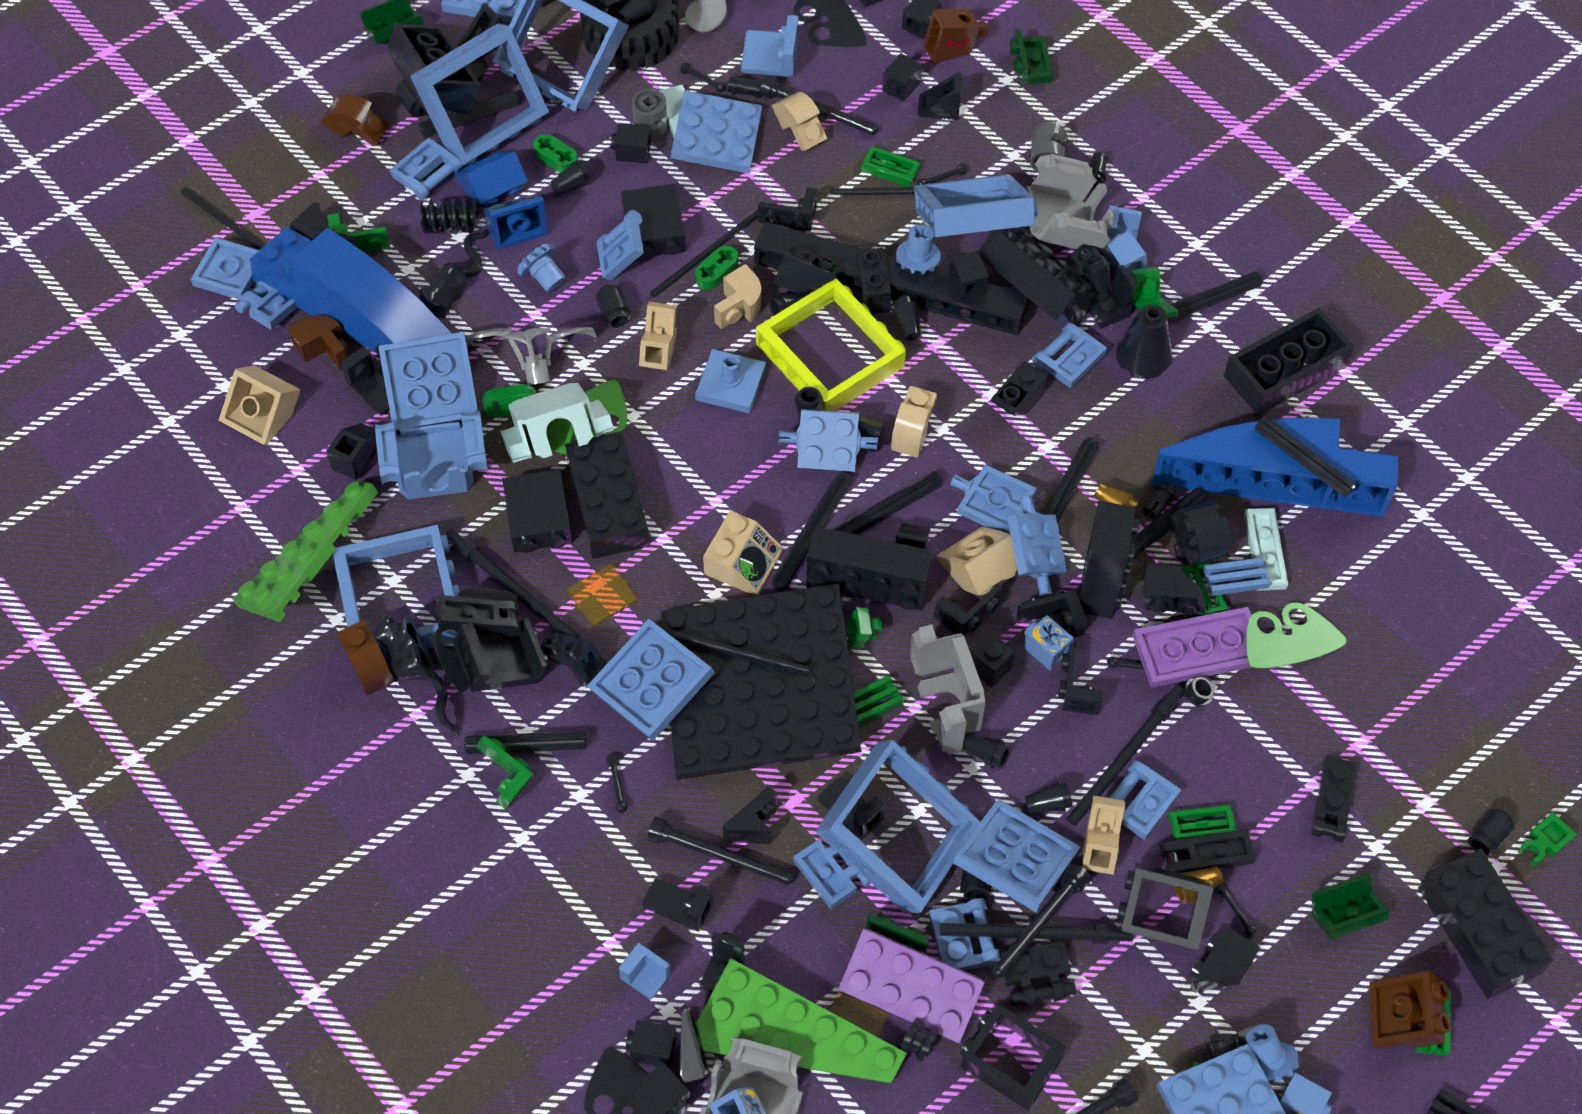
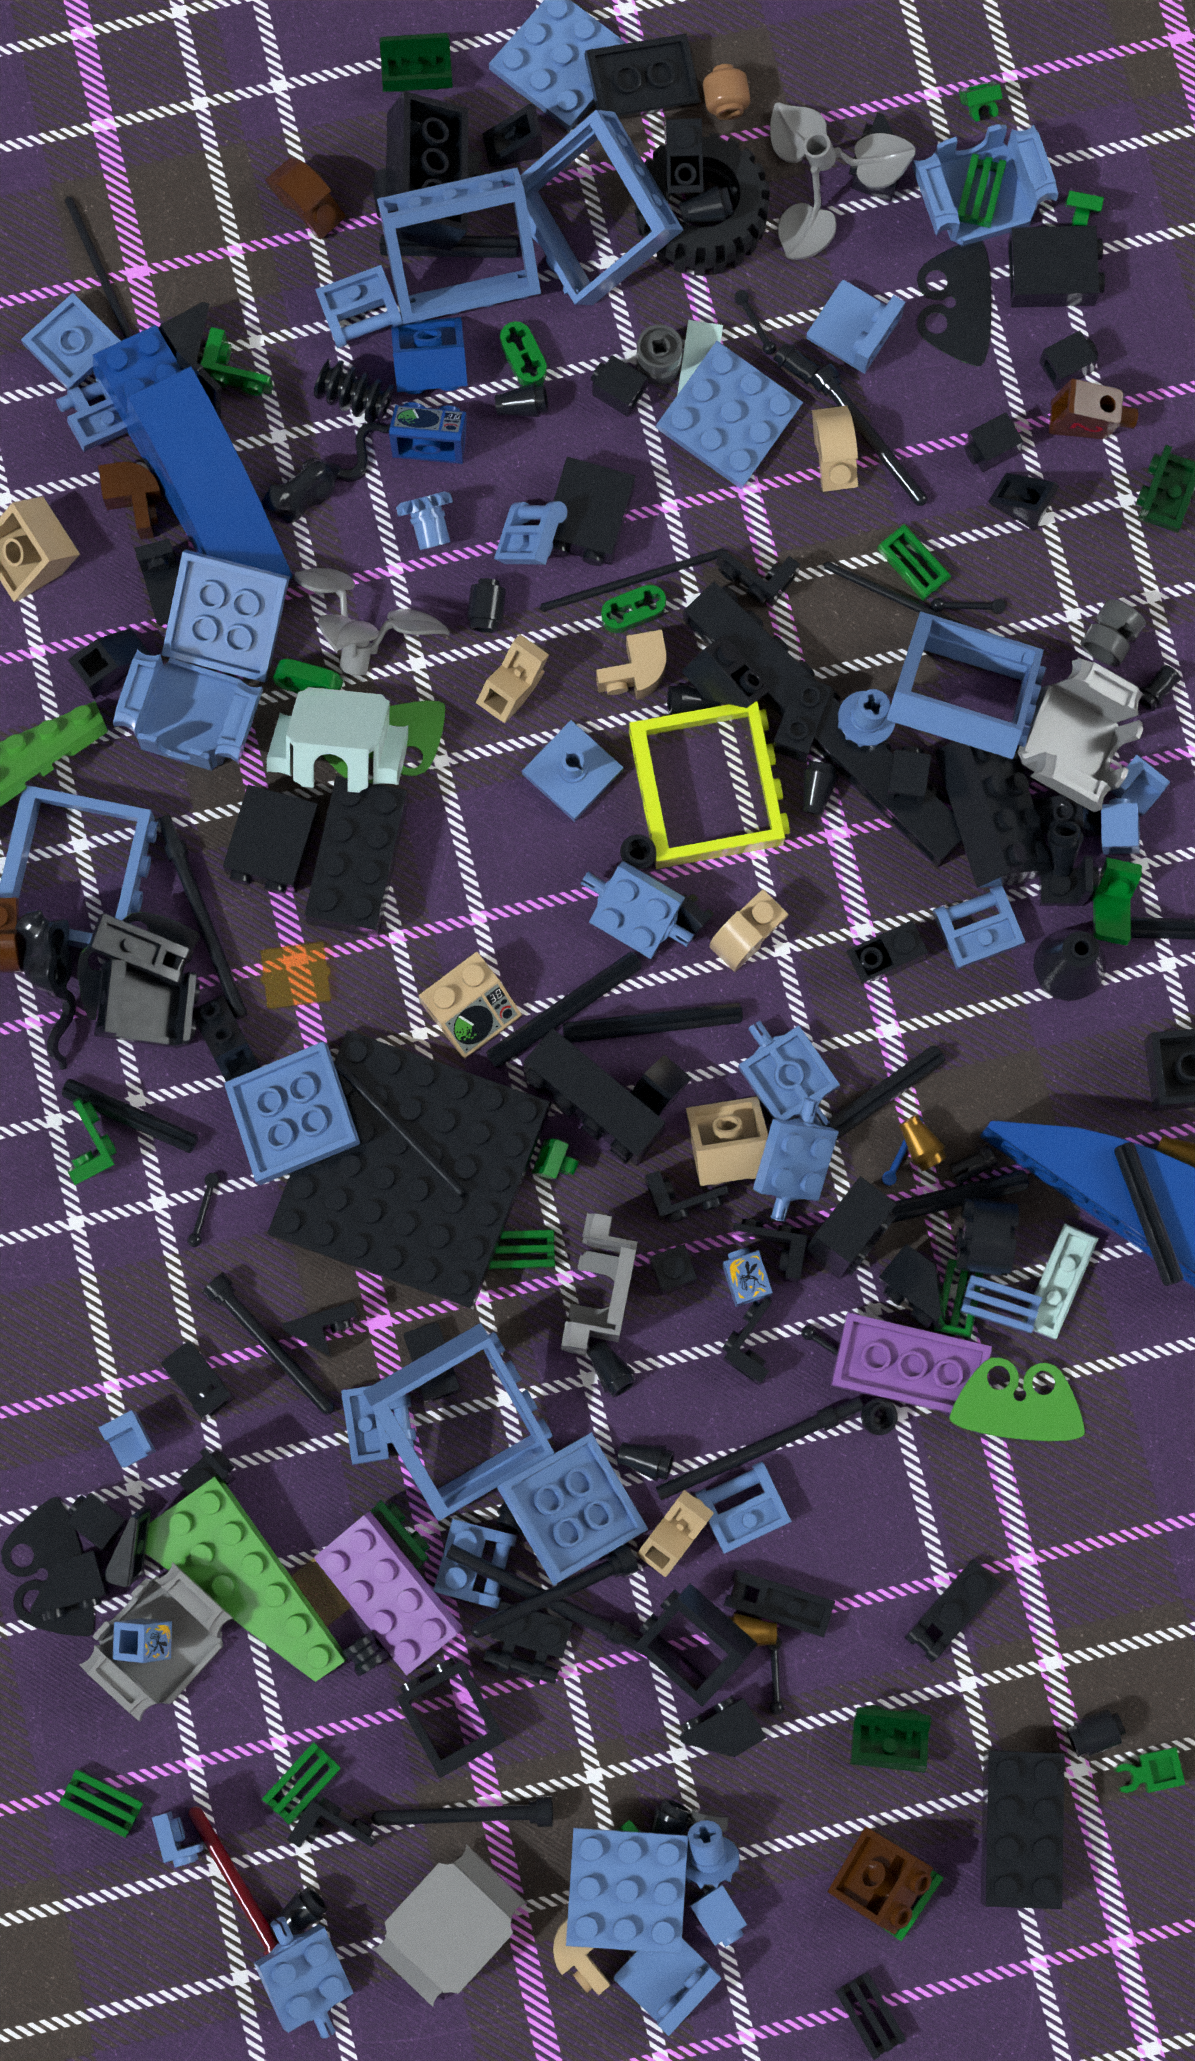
camera: 25 degrees right, 20 degrees up
(1175, 816) = (825, 1578): green tile -> none

